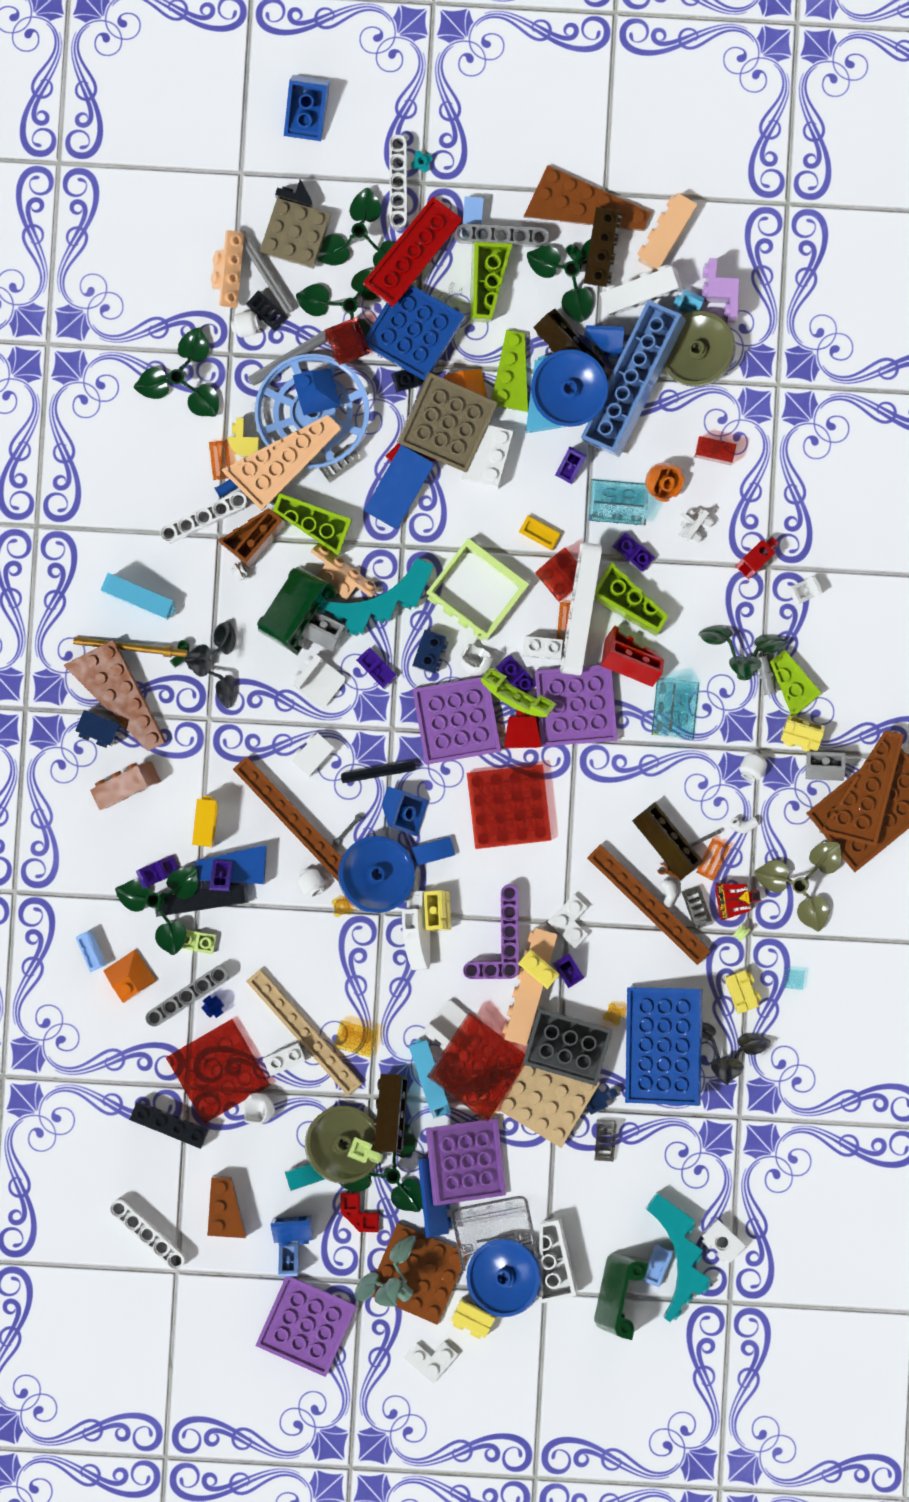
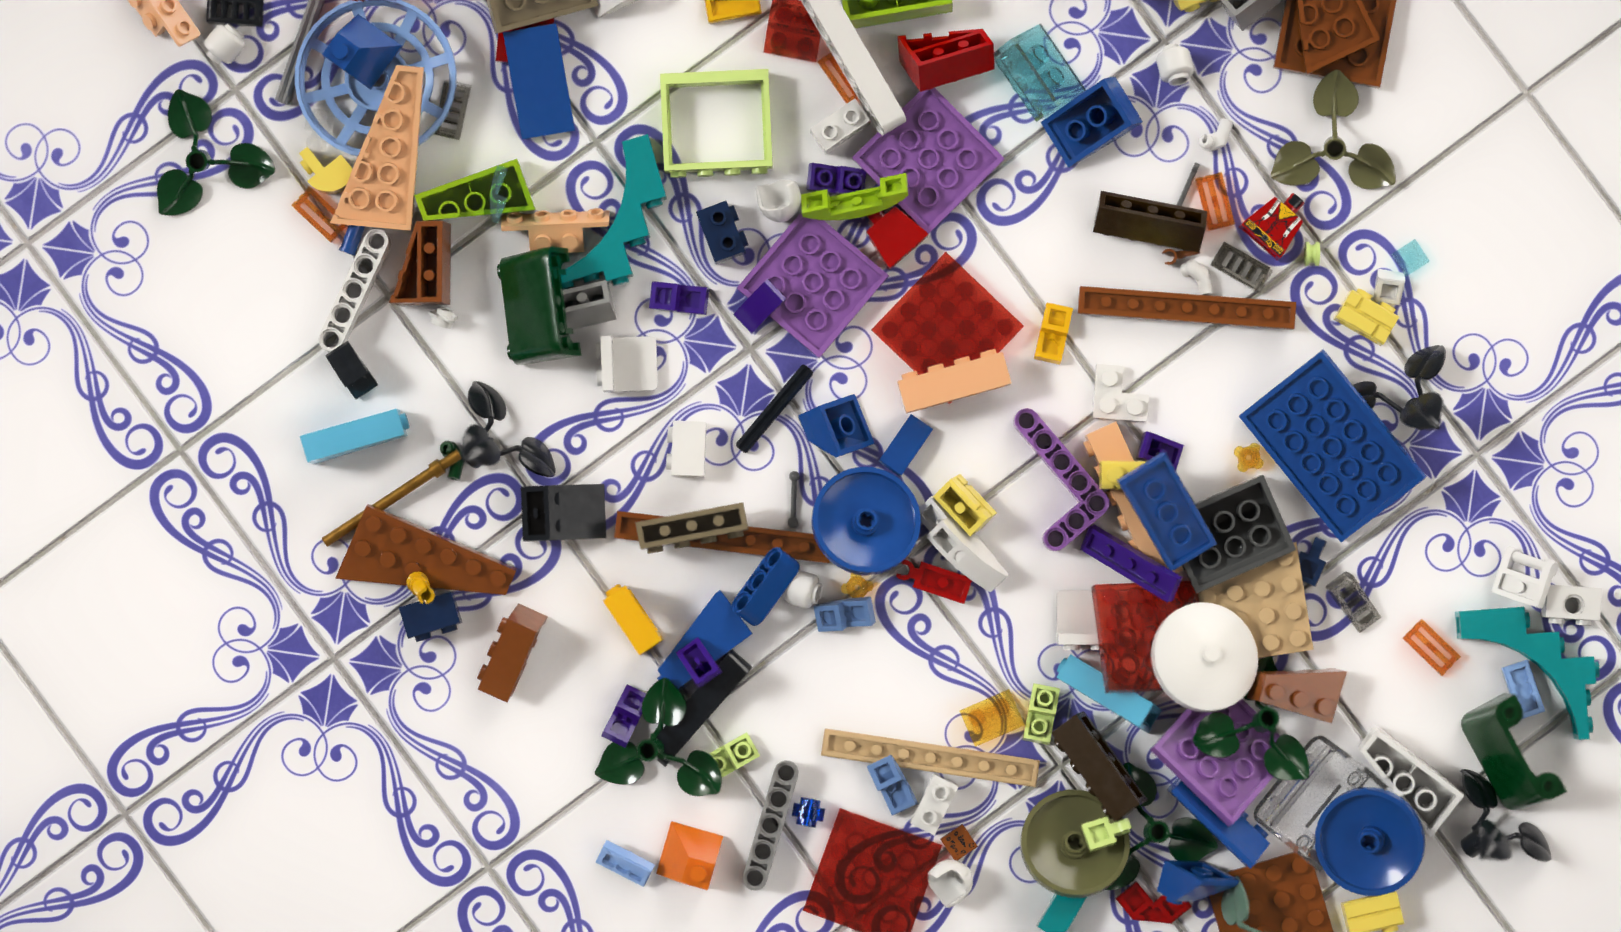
camera: 30 degrees left, 0 degrees up
(105, 706) = (419, 585): none -> yellow pin
(166, 559) = (351, 370): none -> black slope
(216, 732) = (563, 512): none -> black slope
(271, 1030) = (892, 784): none -> medium blue slope
(281, 1091) = (958, 842): none -> dark orange tile
(282, 800) = (691, 526): none -> dark tan brick
(292, 864) = (765, 586): none -> blue beam
(321, 534) = (497, 201): none -> clear light blue slope
(322, 914) = (844, 613): none -> medium blue slope
(384, 1059) = (1041, 714): none -> yellowish green slope
(388, 940) = (938, 581): none -> red plate
(389, 1218) = (1192, 881): none -> blue slope
(416, 709) = (759, 306): none -> dark purple slope
(468, 1151) = (1285, 758): none -> dark green plant
(486, 839) = (953, 382): none -> light nougat brick
(497, 1102) = (1204, 657): none -> white dish
(500, 1018) = (1131, 563): none -> dark purple plate
(536, 1167) = (1301, 691): none -> wedge
(542, 1006) = (1167, 511): none -> blue tile
(564, 857) = (1053, 333): none -> yellow slope
(566, 1330) = (1486, 838): none -> black plant
(628, 1217) = (1447, 663): none -> clear orange tile
(682, 759) = (1091, 121): none -> blue slope
(704, 1210) = (1522, 586): none -> white plate
(768, 985) = (1389, 287): none -> white slope

